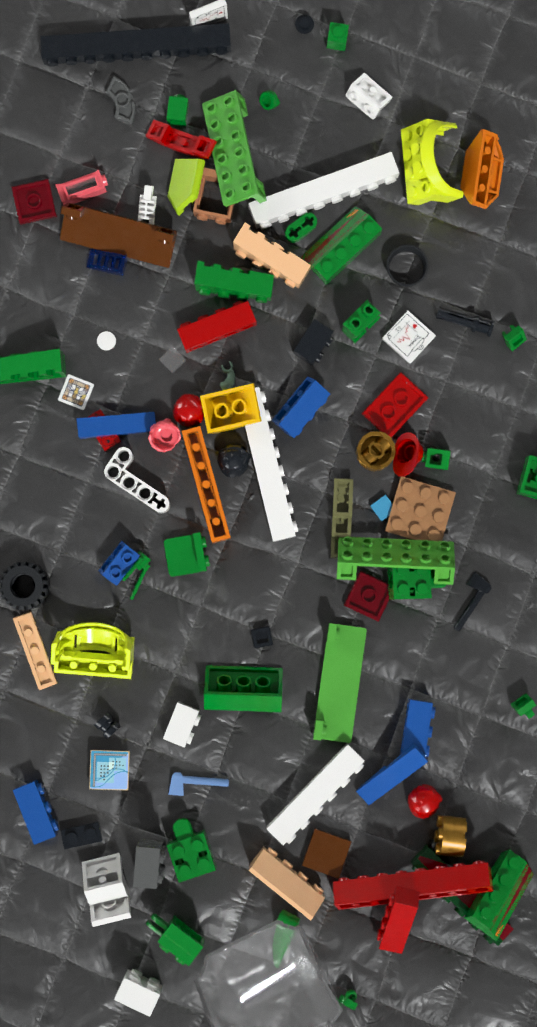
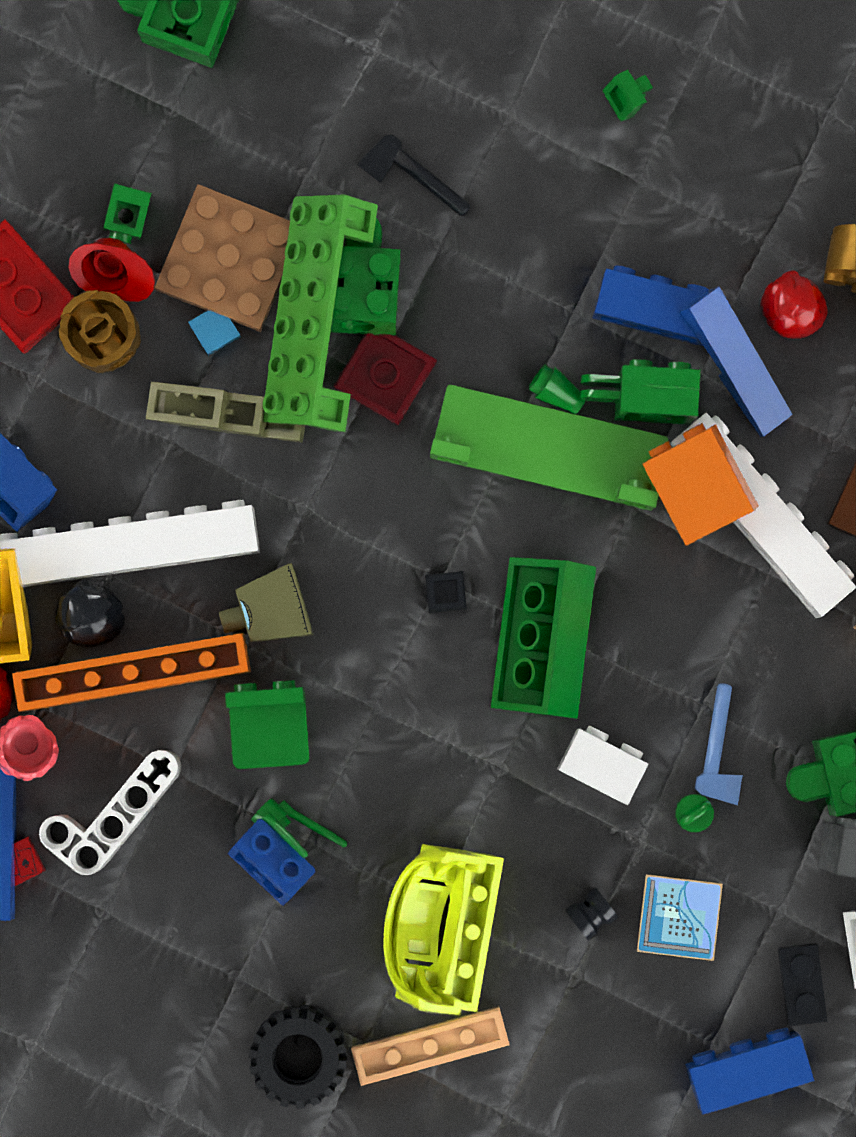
camera: 90 degrees left, 0 degrees up
(162, 772) = (694, 813): none -> green tile
(245, 550) = (270, 608): none -> olive torso
(327, 760) = (699, 483): none -> orange brick
(369, 684) = (556, 389): none -> green cone
(371, 731) = (648, 392): none -> green brick

